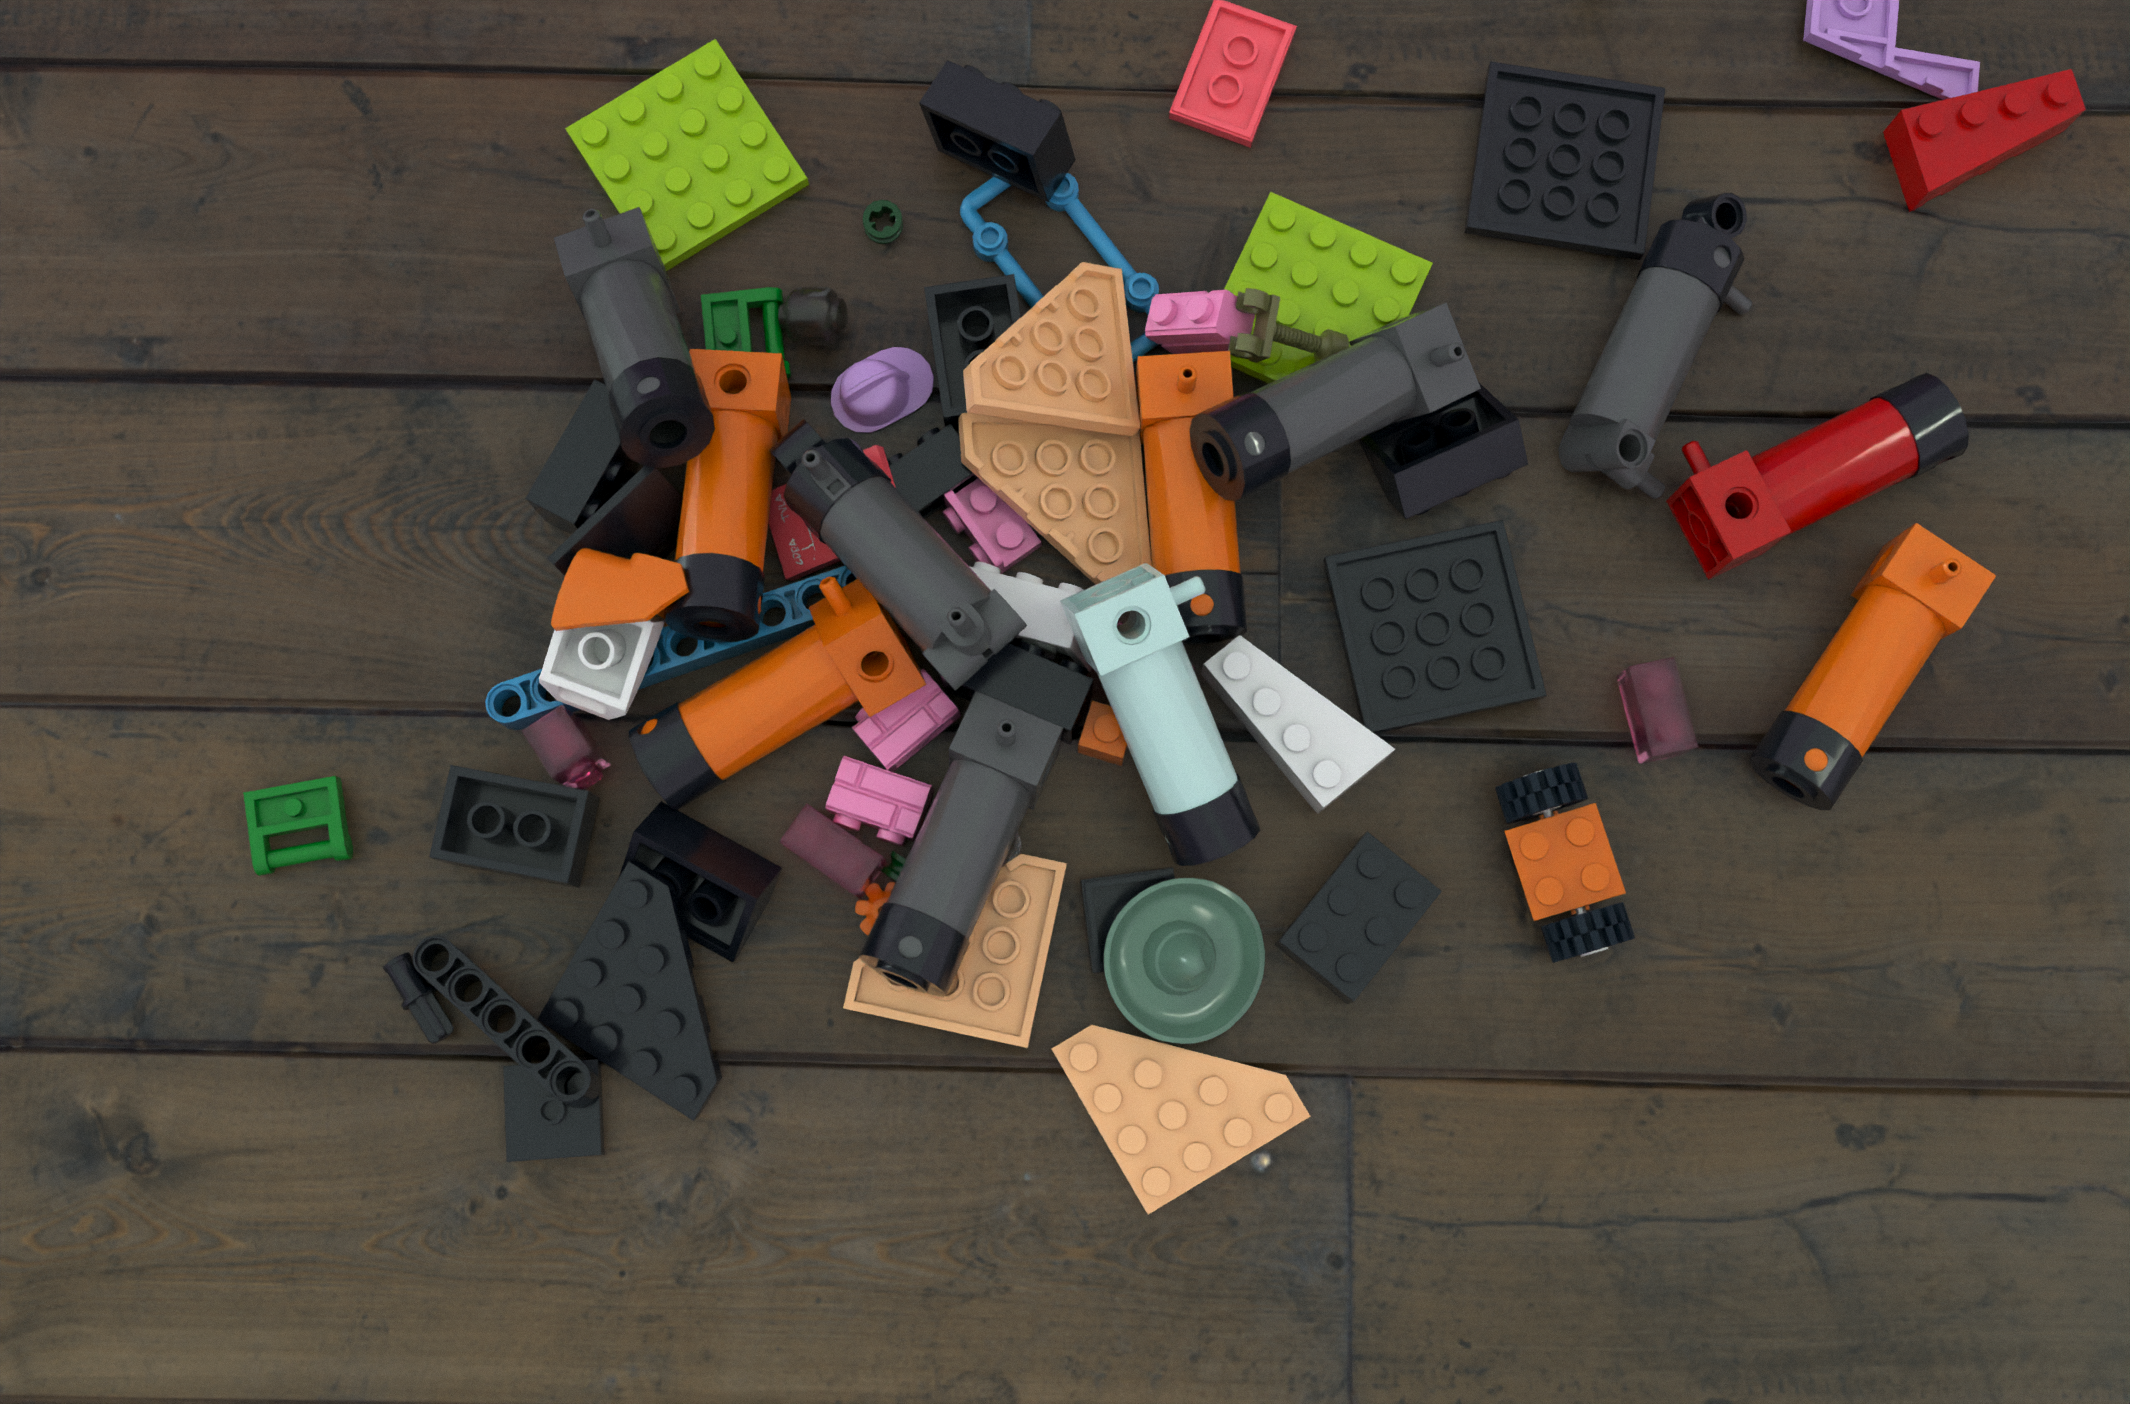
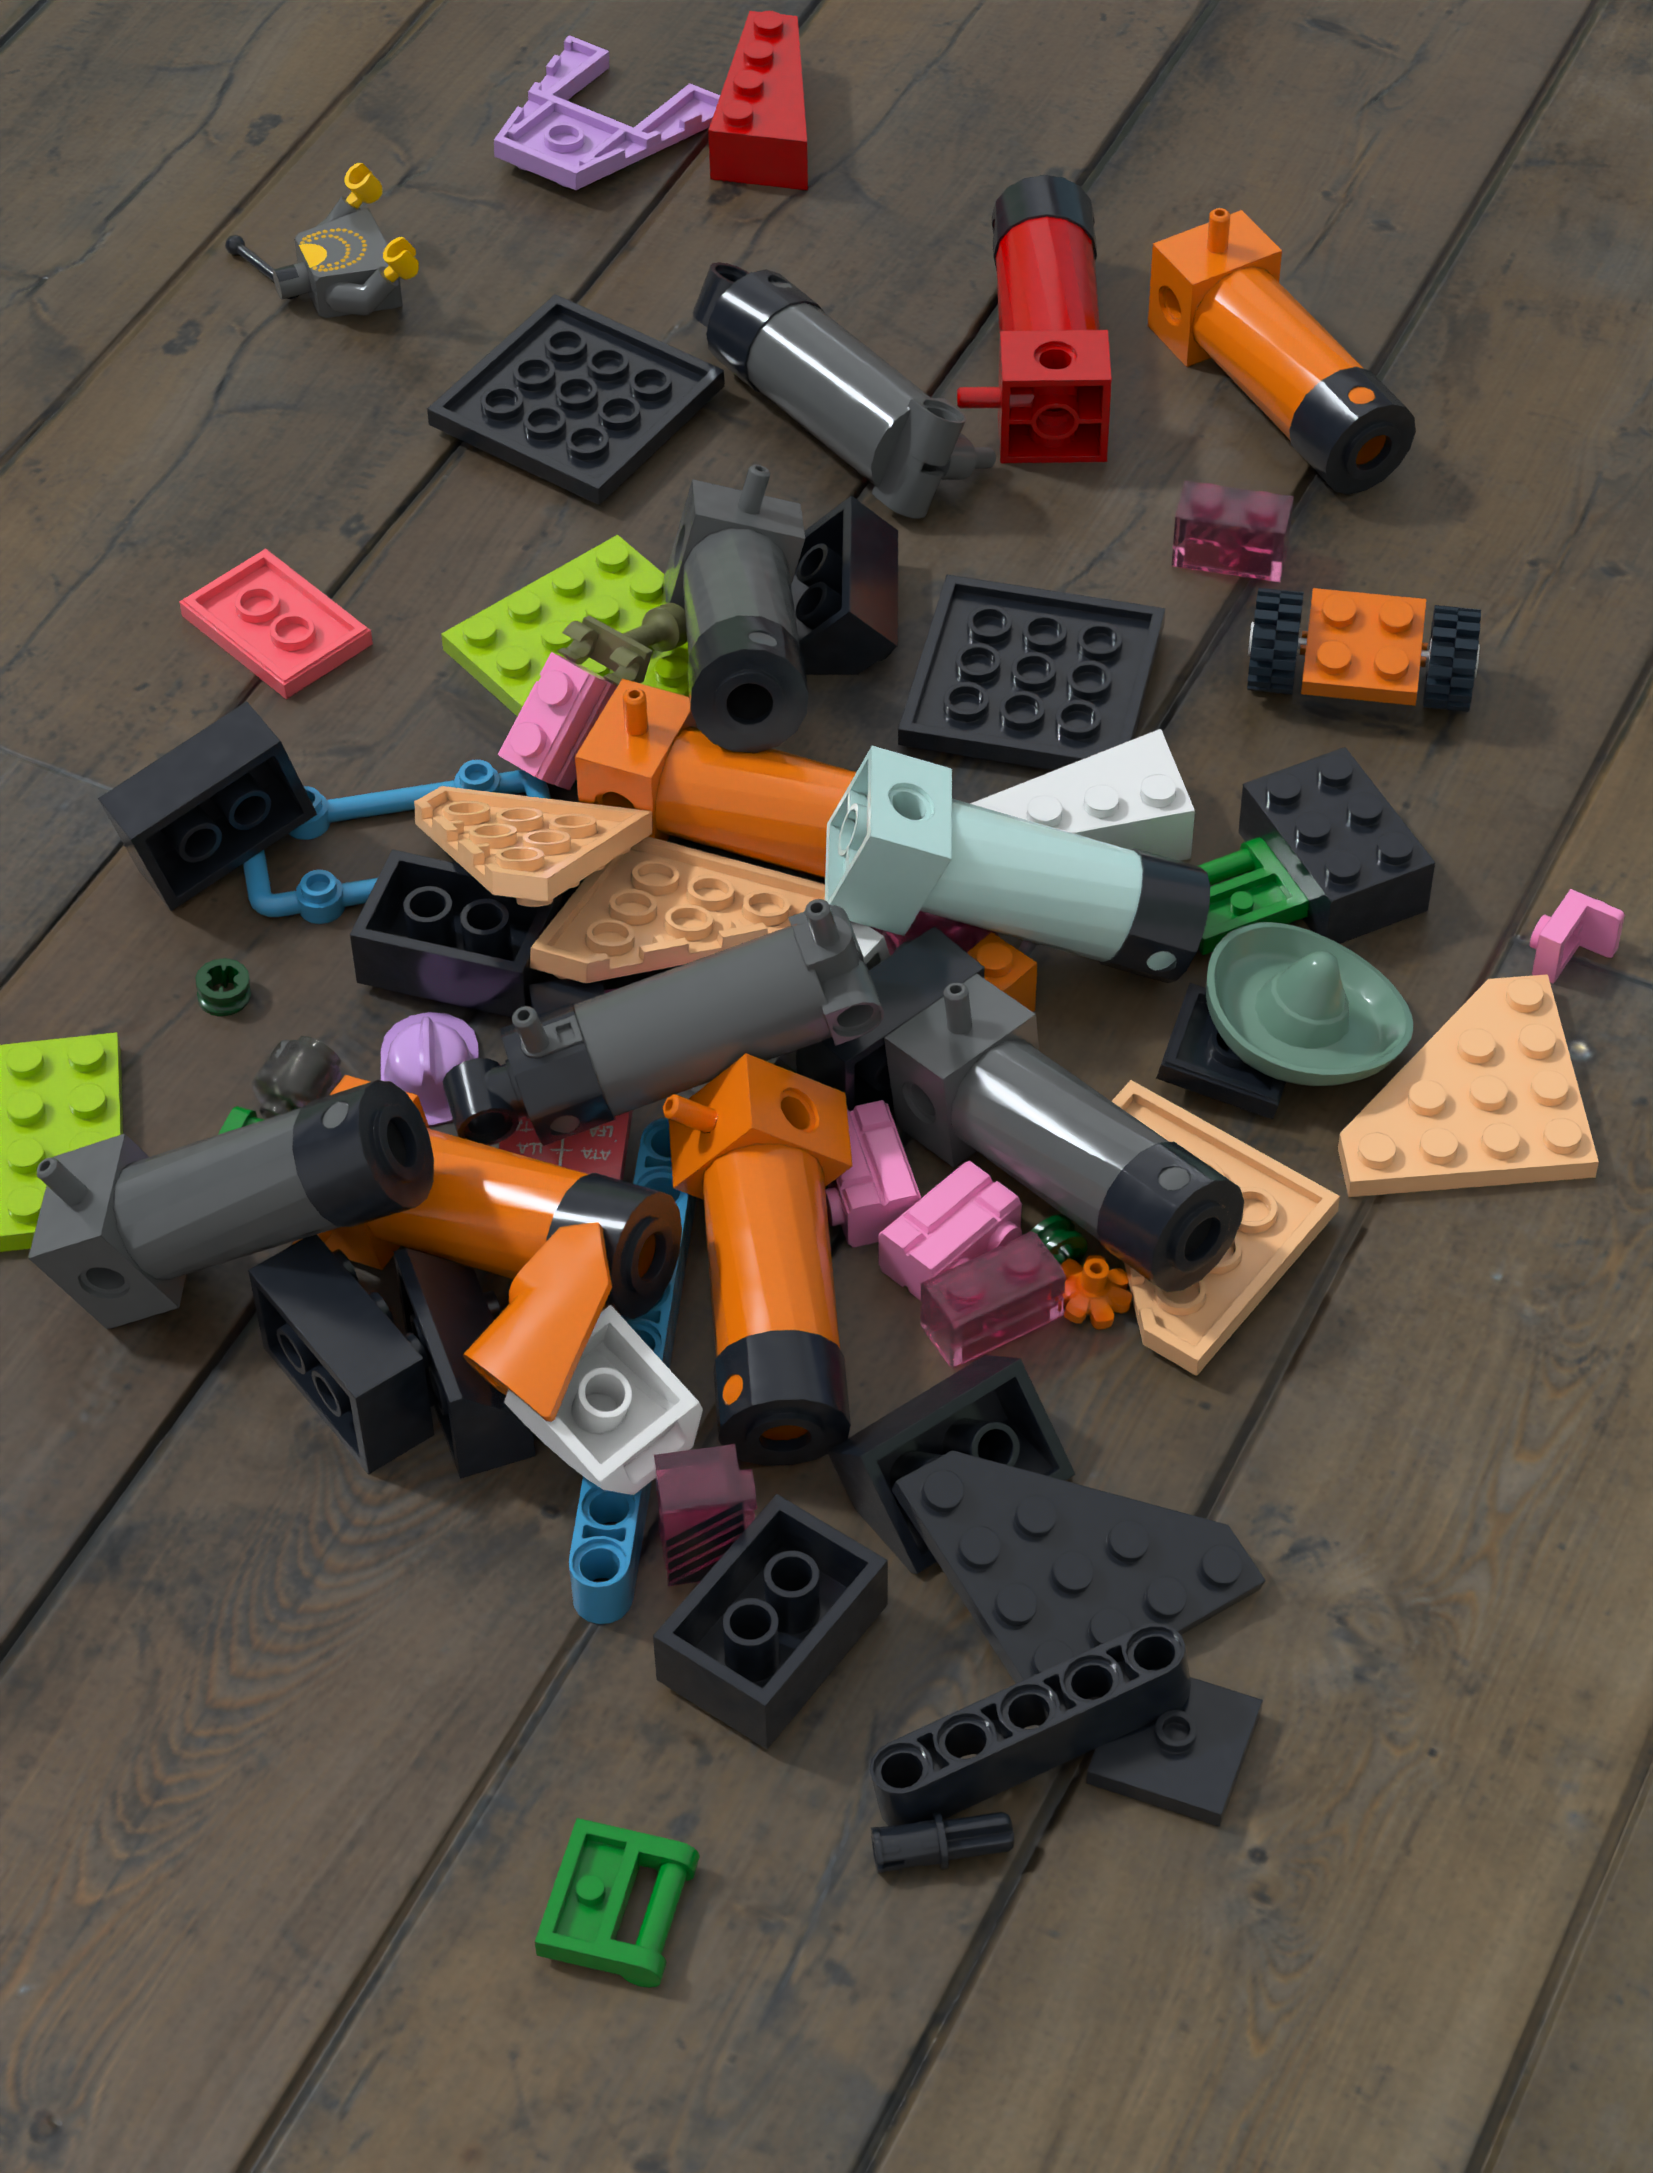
camera: 65 degrees left, 30 degrees down
(1275, 872) = (1258, 896): none -> green plate
(1347, 1110) = (1574, 924): none -> bright pink bracket

